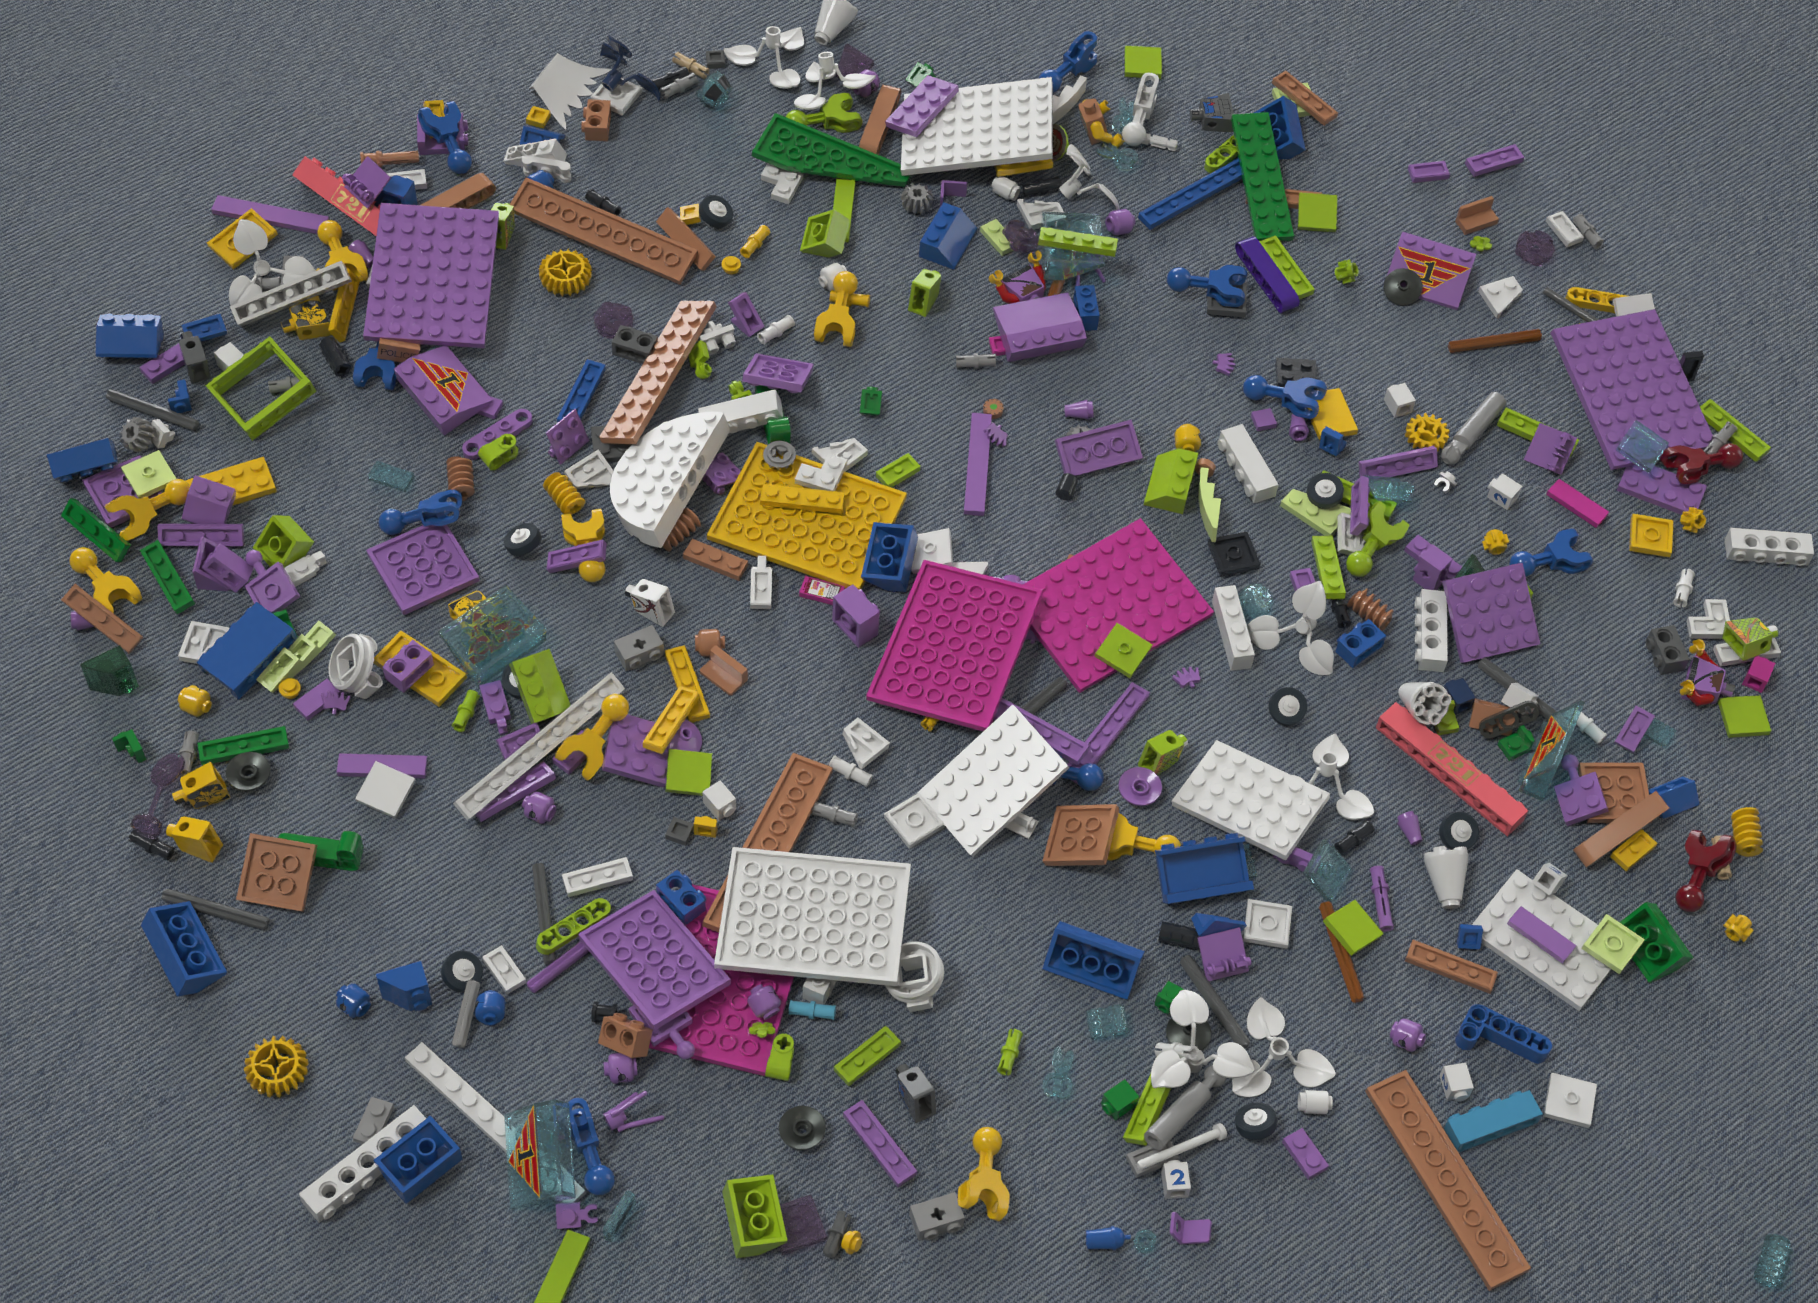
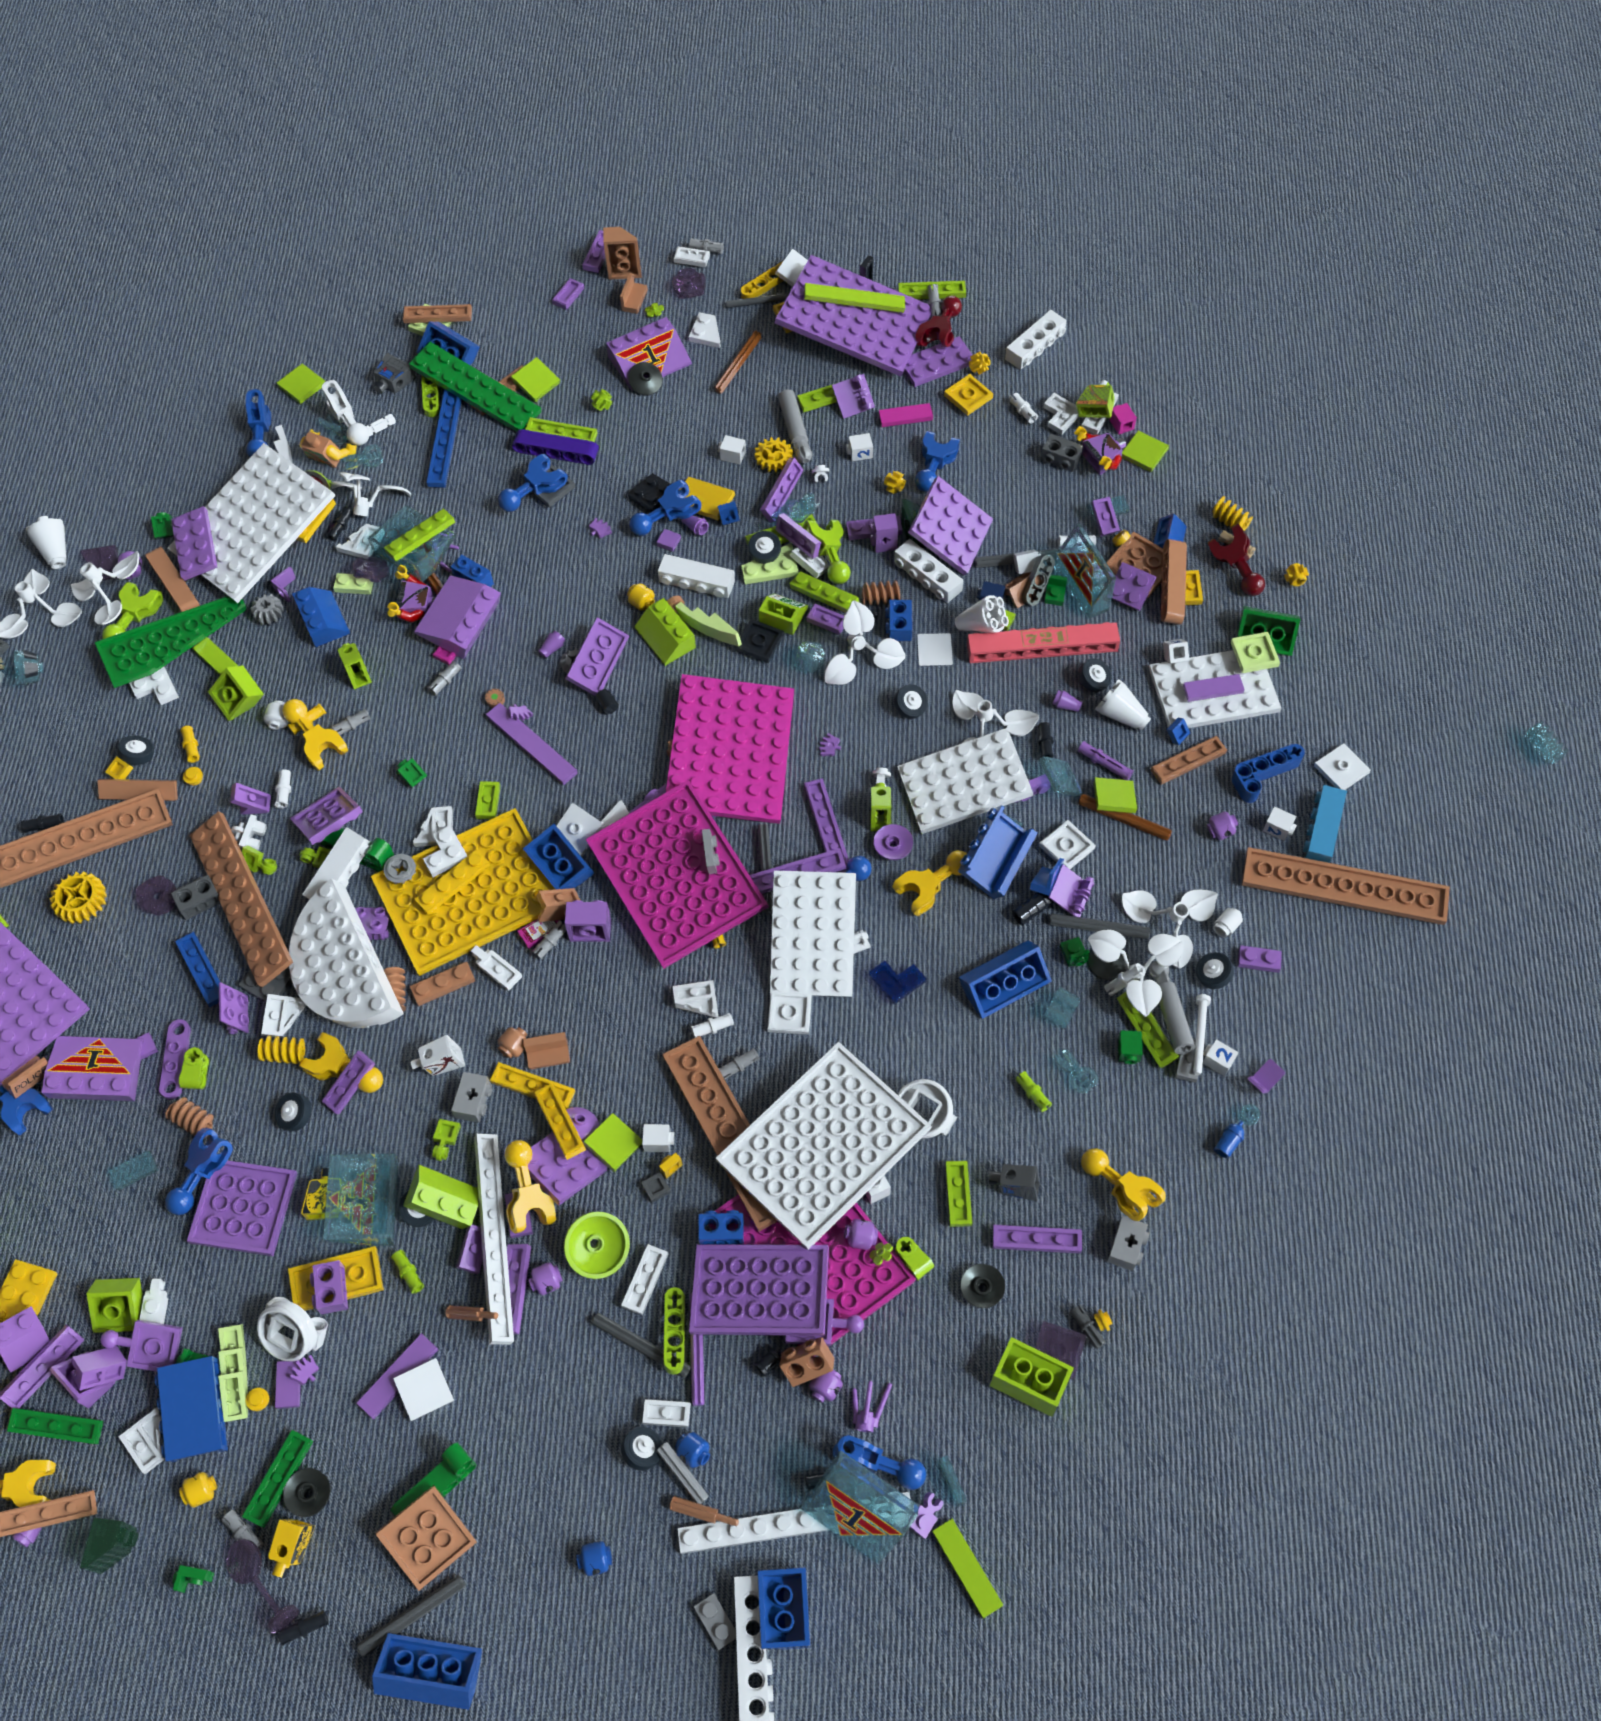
camera: 45 degrees left, 5 degrees up
(195, 838) = (332, 1585): yellow torso -> none
(258, 1066) = (597, 1679): yellow gear -> none
(405, 987) = (624, 1504): blue slope -> none
(446, 1047) = (700, 1511): none -> nougat axle
(466, 773) = (469, 1313): none -> nougat axle
(495, 705) = (422, 1244): medium lavender plate -> none
(578, 820) = (609, 1252): none -> lime dish
(594, 653) = (445, 1133): none -> lime plate
(812, 1009) = (889, 1204): medium azure pin -> none
(816, 603) = (550, 940): none -> light grey pin
(846, 575) = (554, 903): none -> nougat panel
(875, 329) = (351, 722): none -> light grey pin
(988, 653) = (712, 859): none -> light grey plate
(1006, 188) = (318, 546): white brick -> none
(1011, 883) = (897, 986): none -> clear blue plate
(1081, 835) = (903, 909): nougat plate -> none
(1120, 222) = (422, 499): medium lavender head -> none
(1123, 650) = (777, 768): lime plate -> none
(1194, 734) = (881, 774): none -> white plate
(1233, 628) = (819, 686): white brick -> none
(1276, 549) = (782, 613): none -> lime slope
(1362, 691) = (934, 649): none -> white sticker
(1500, 174) = (621, 253): none -> nougat slope
(1626, 757) = (1121, 538): none -> yellow tile
(1642, 446) = (904, 344): clear light blue plate -> none
(1645, 373) = (854, 297): none -> lime tile

